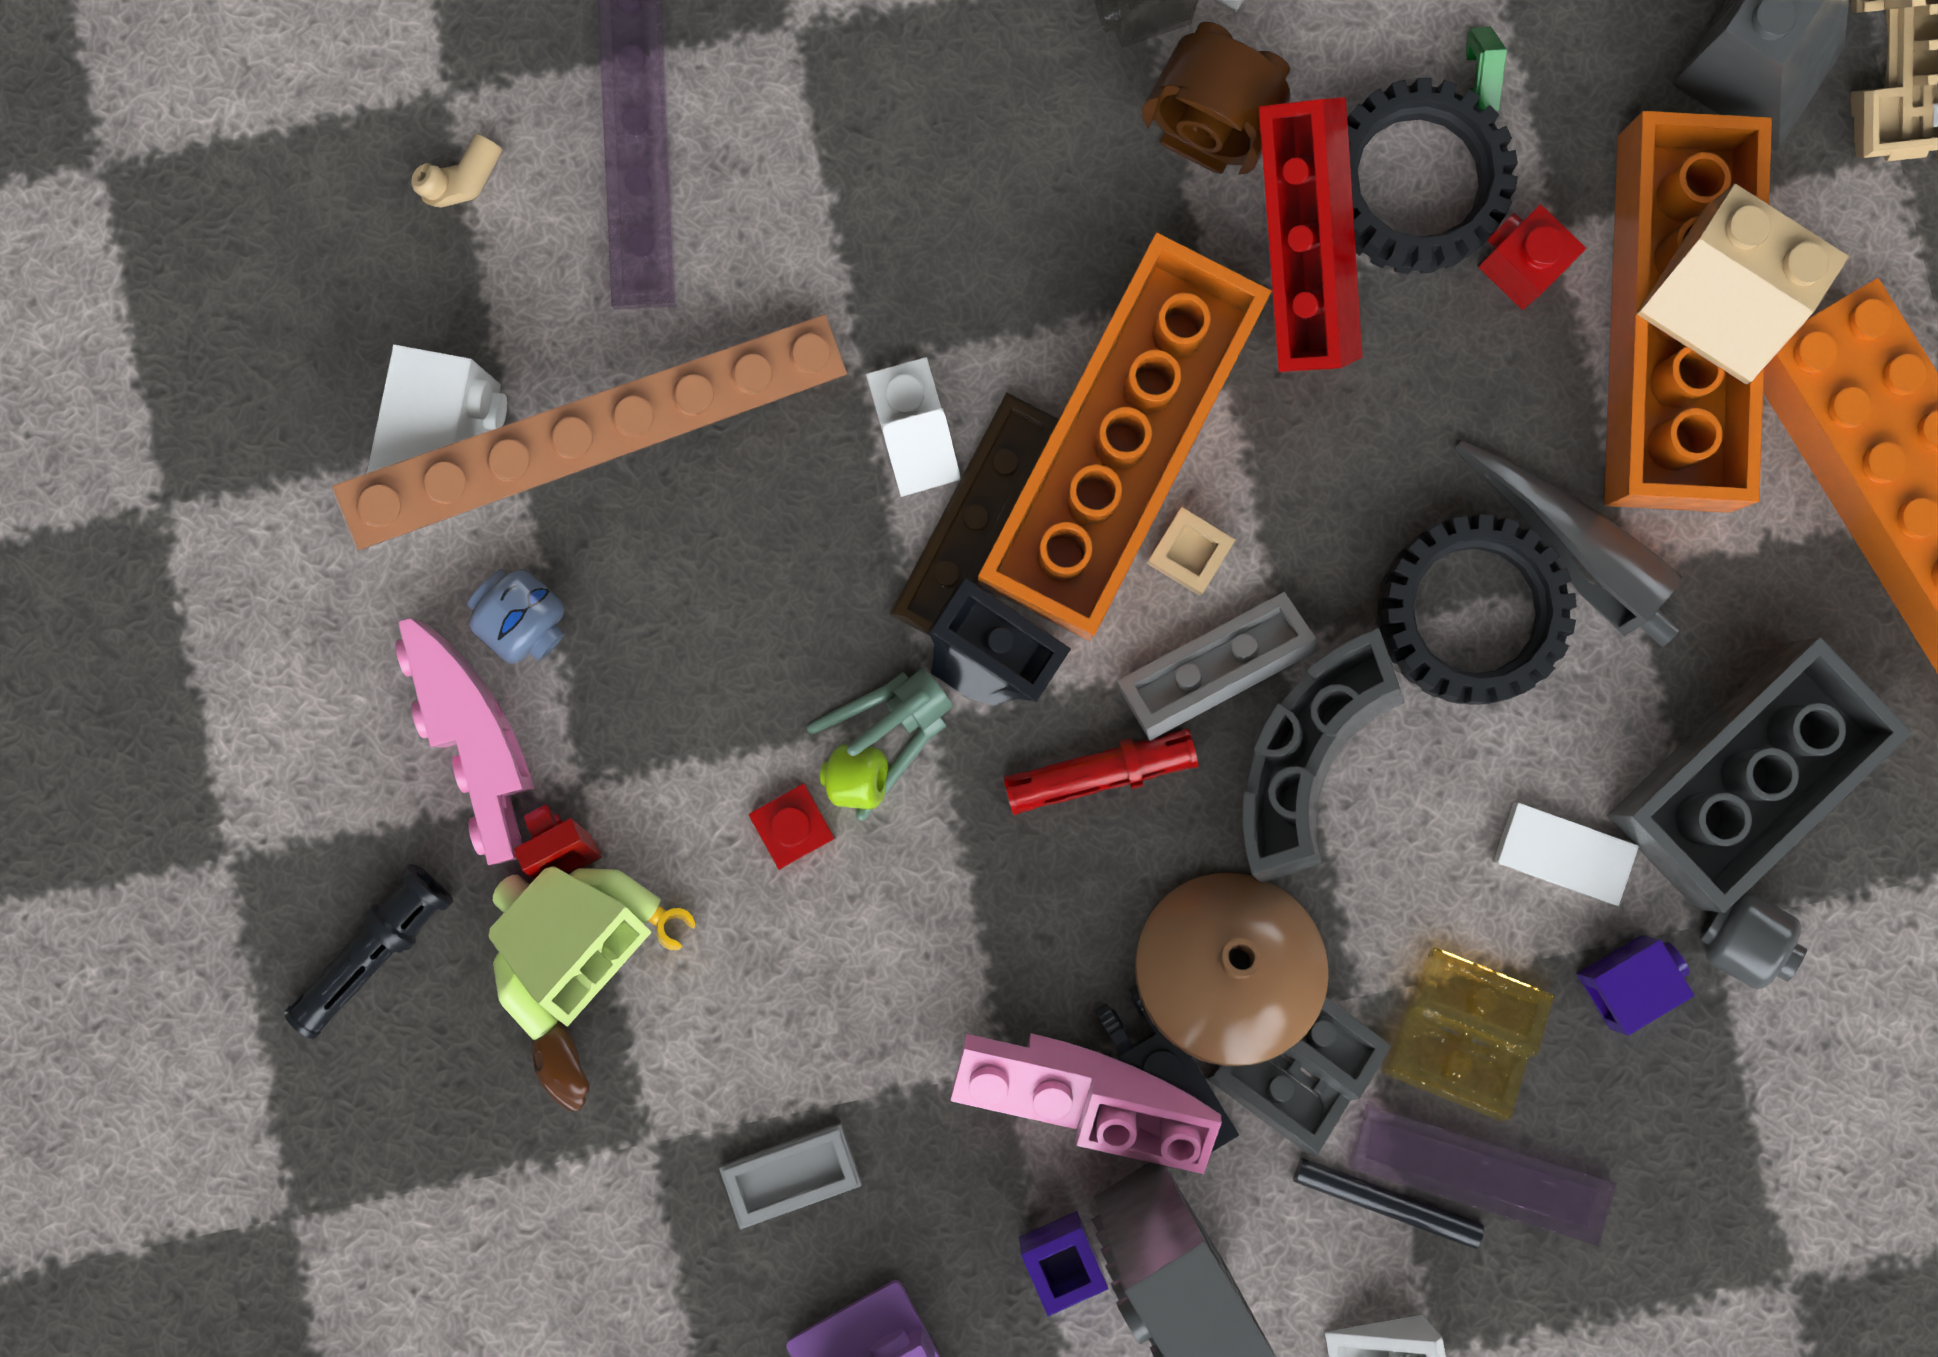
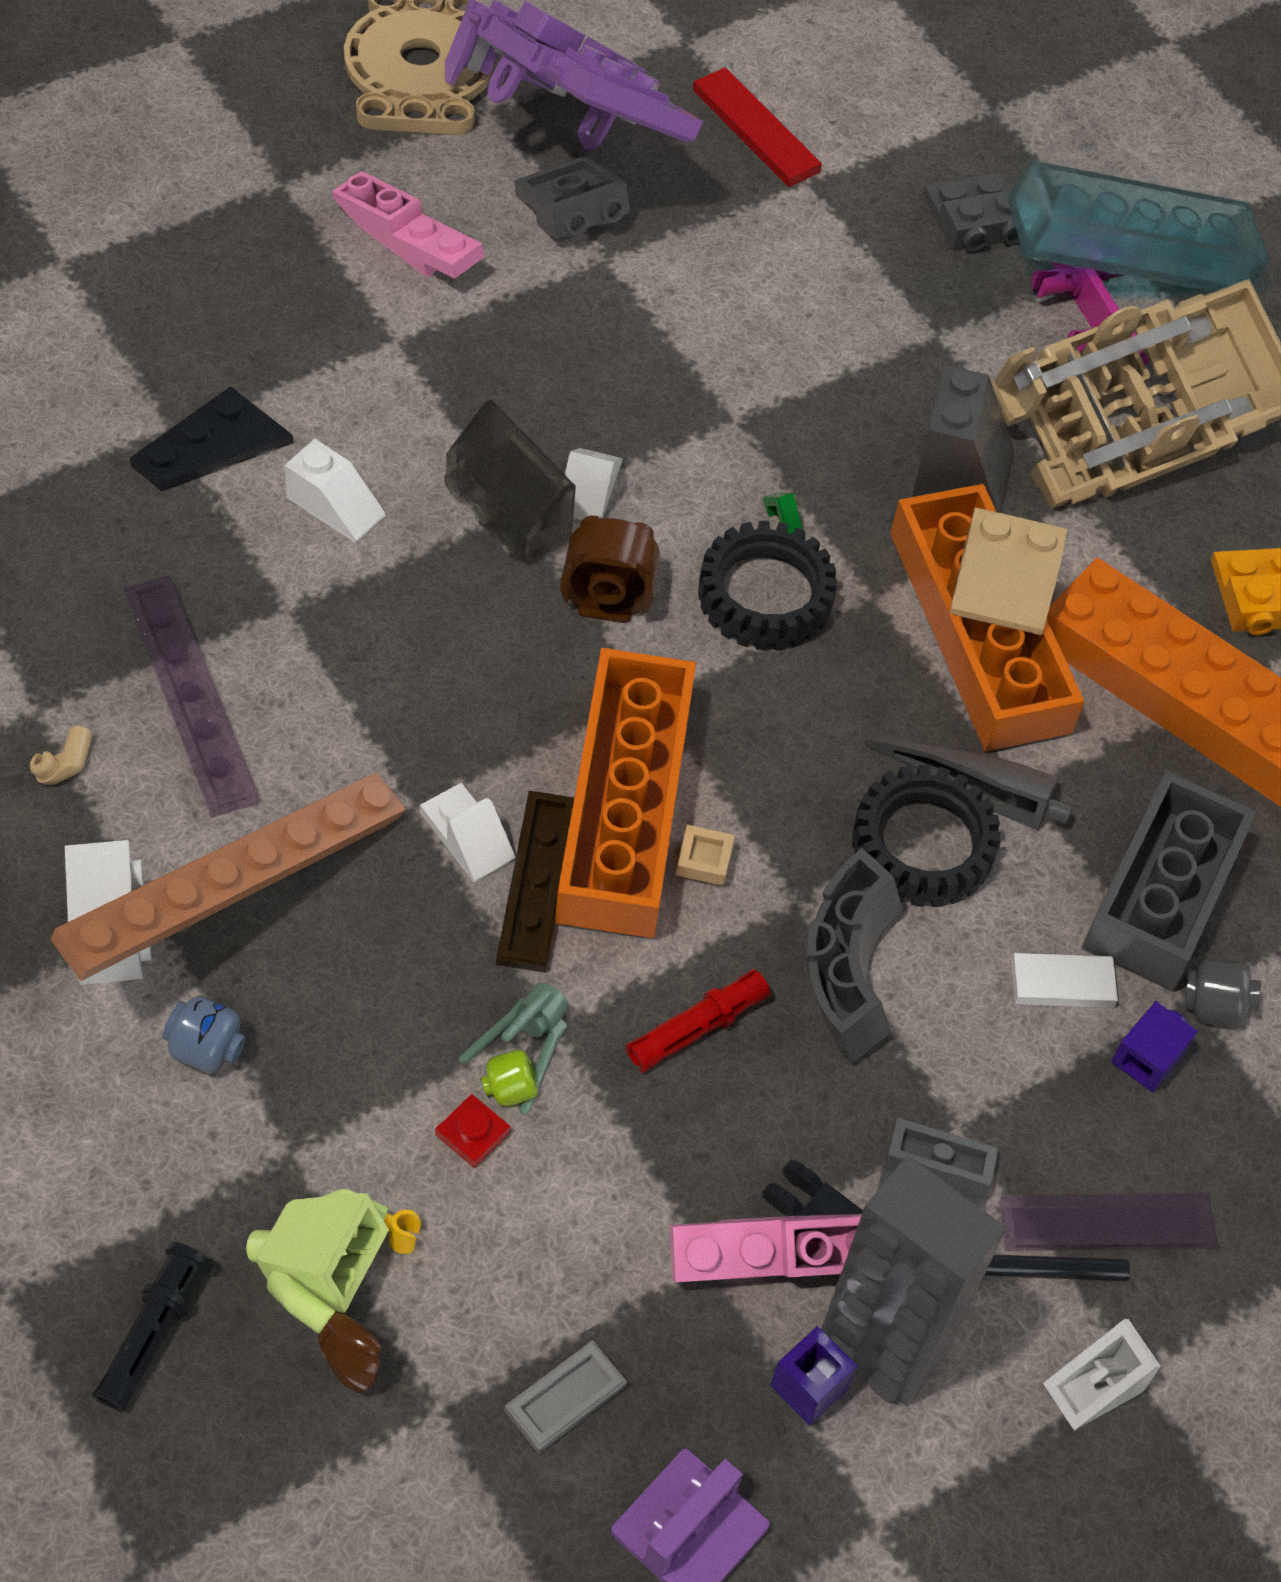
camera: 25 degrees left, 30 degrees down
(462, 711) = (189, 1122): bright pink slope -> none
(555, 844) = (284, 1186): red tile -> none
(992, 649) = (584, 955): black slope -> none
(1208, 1003) = (852, 1125): medium nougat dish -> none
(1217, 665) = (755, 923): light grey plate -> none
(1311, 234) = (709, 623): red brick -> none
(1481, 1008) = (1052, 1104): clear yellow slope -> none
(1530, 255) = (863, 609): red brick -> none

